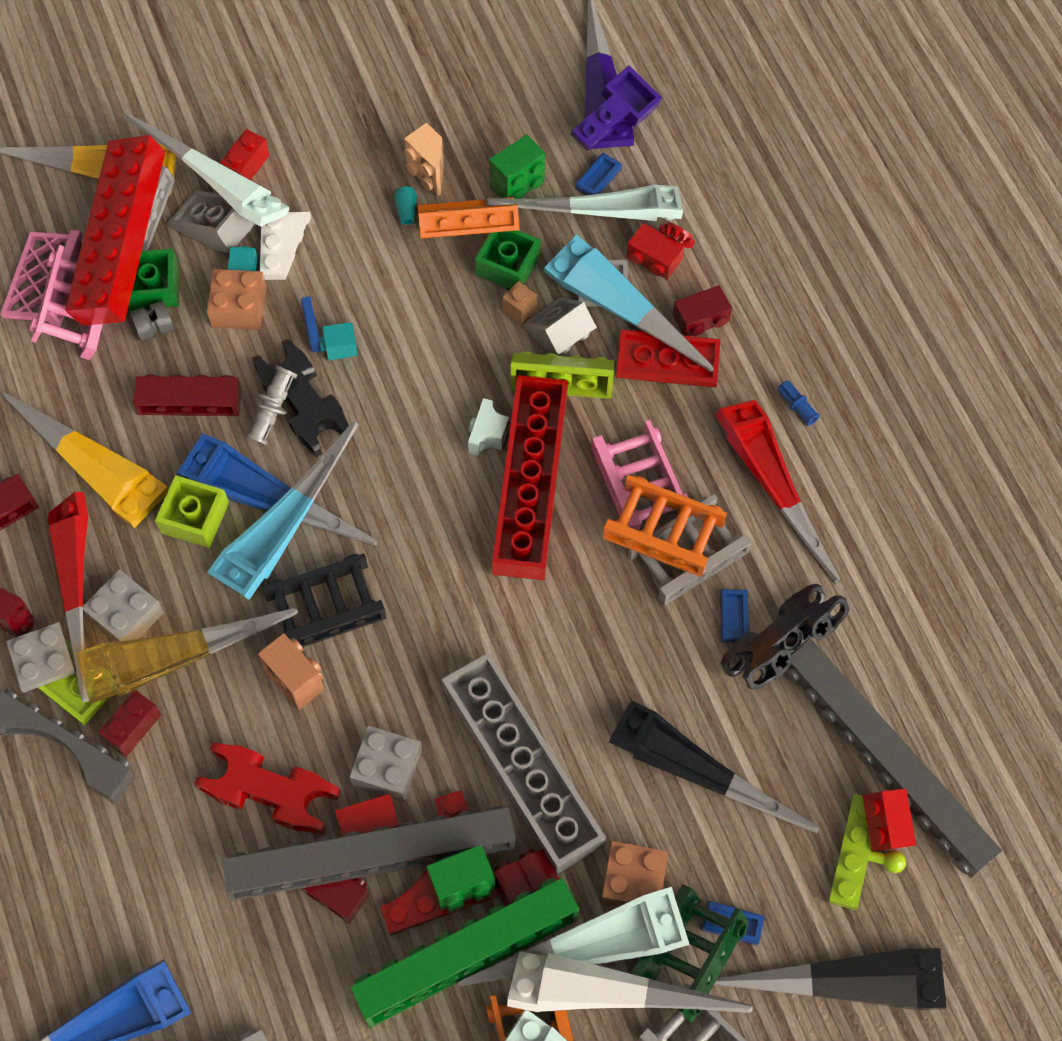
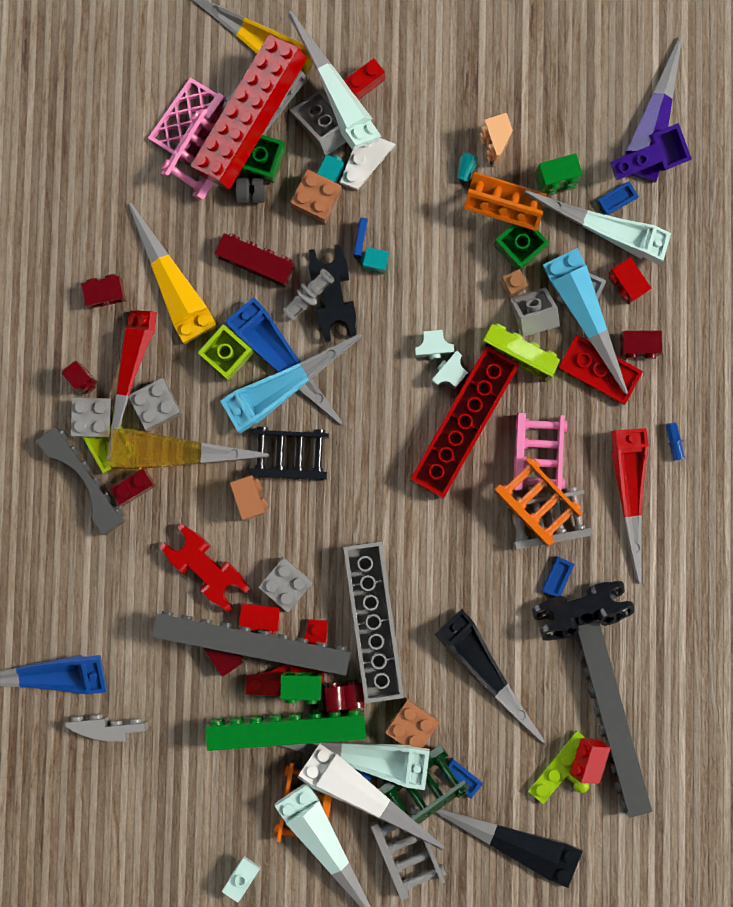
camera: 20 degrees right, 20 degrees up
(453, 407) = (434, 345): none -> light aqua brick
(677, 233) = (650, 275): red gear -> none

